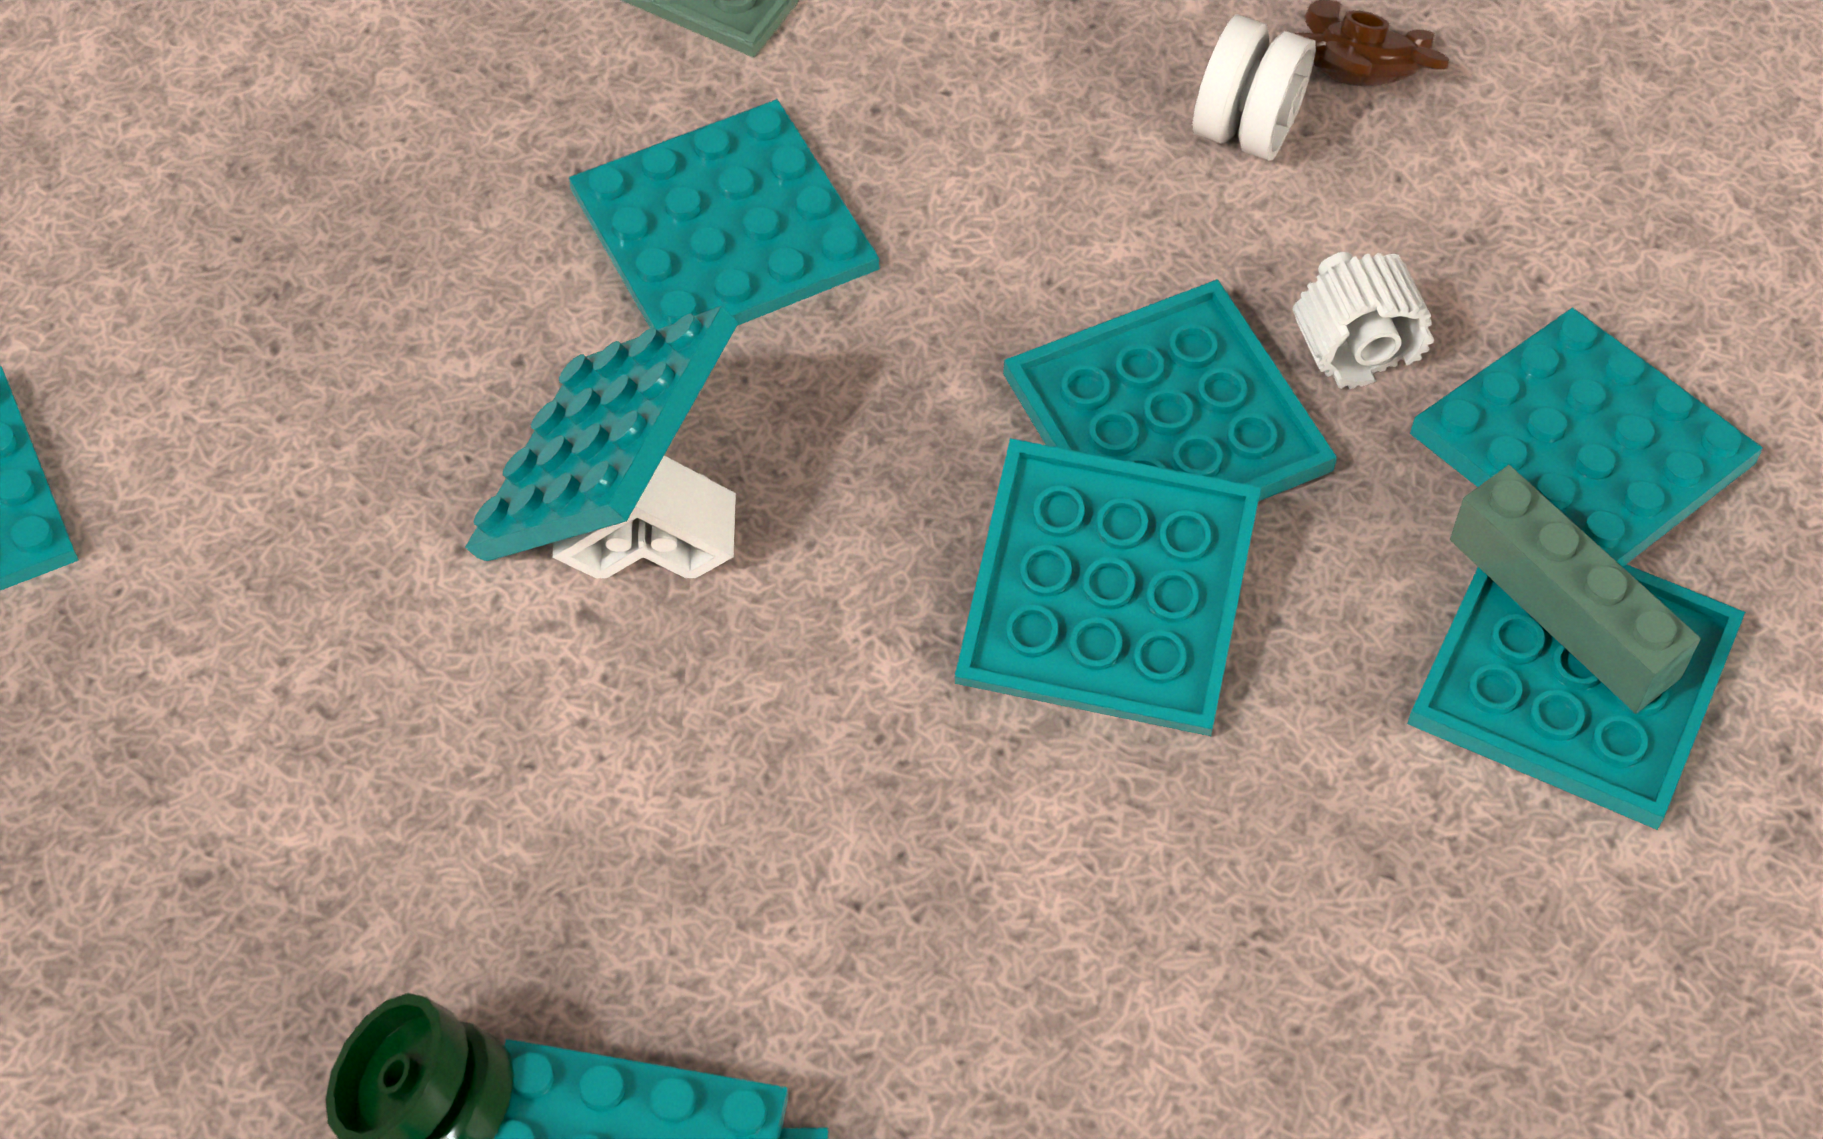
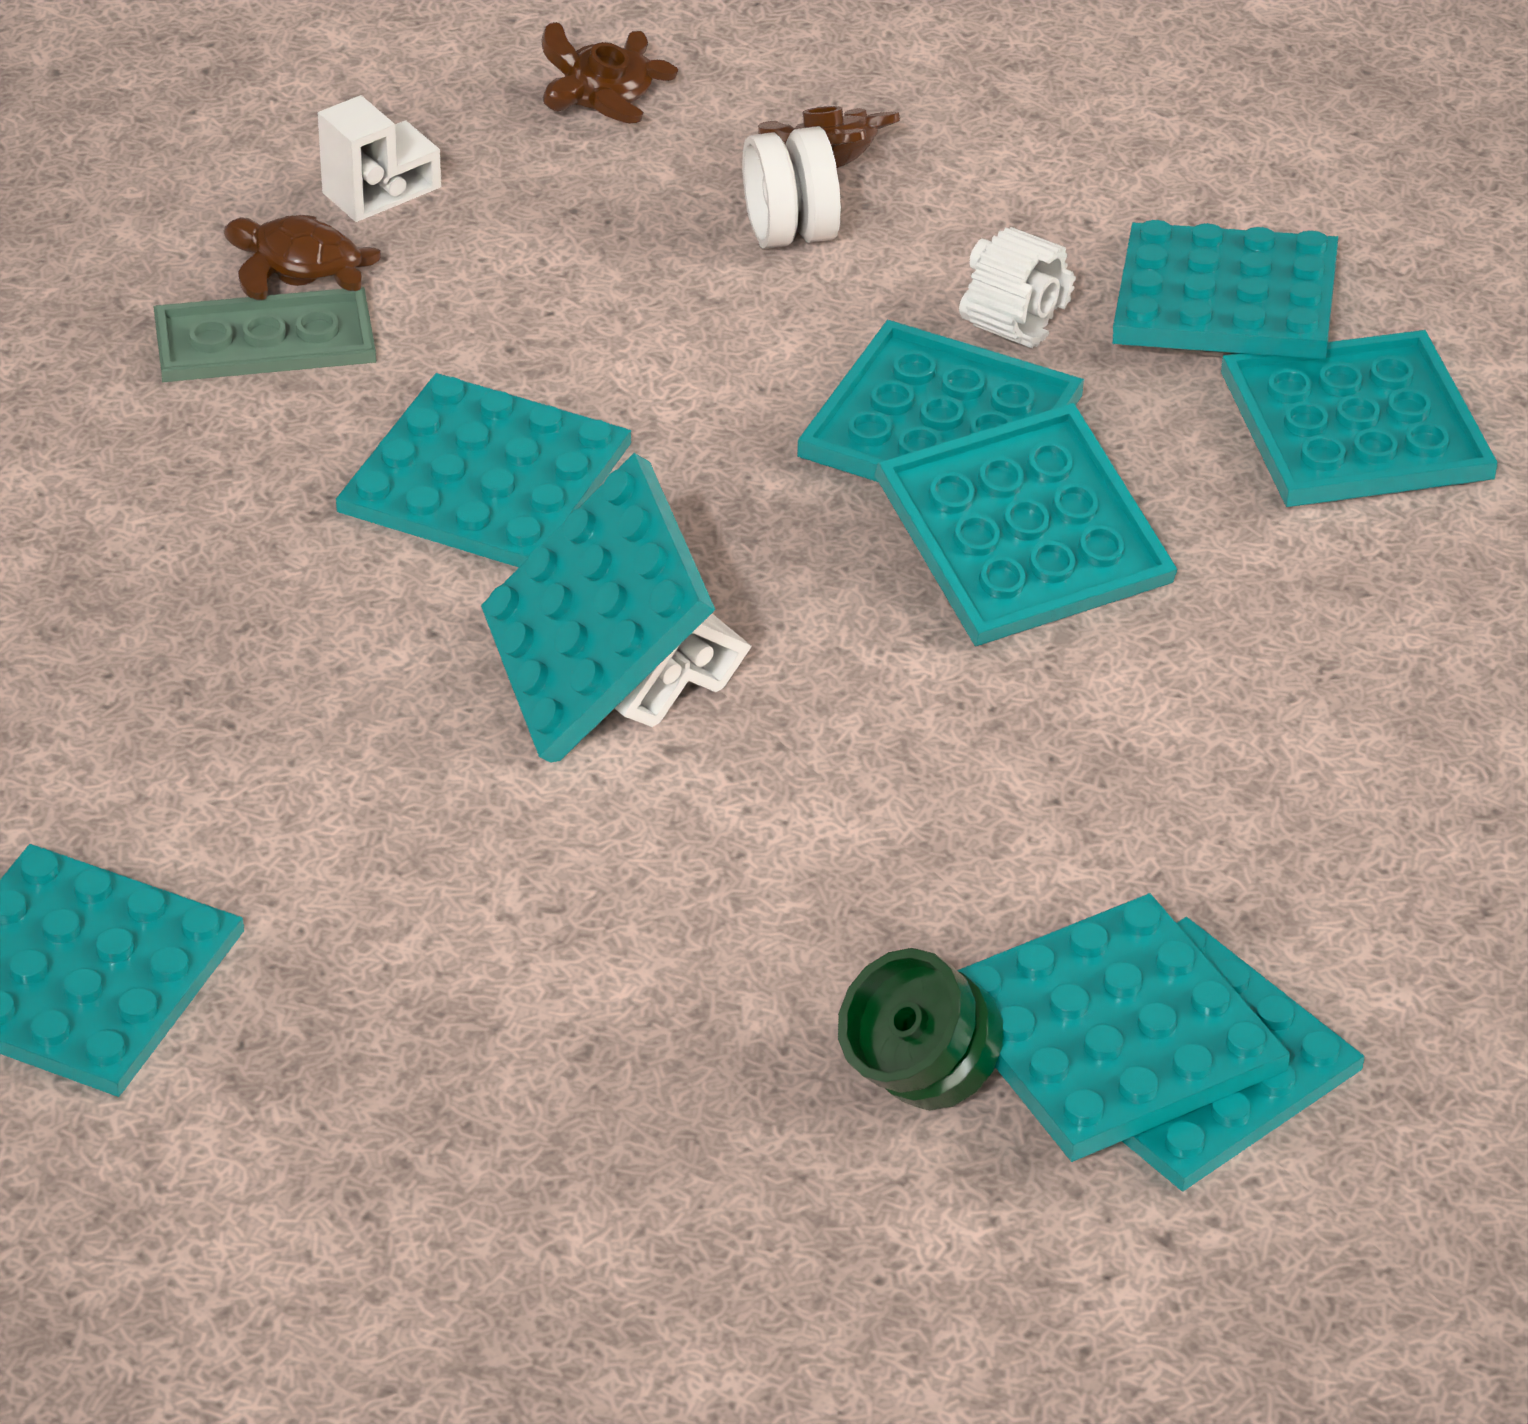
camera: 40 degrees left, 15 degrees down
(1573, 589) = (1320, 359): sand green brick -> none

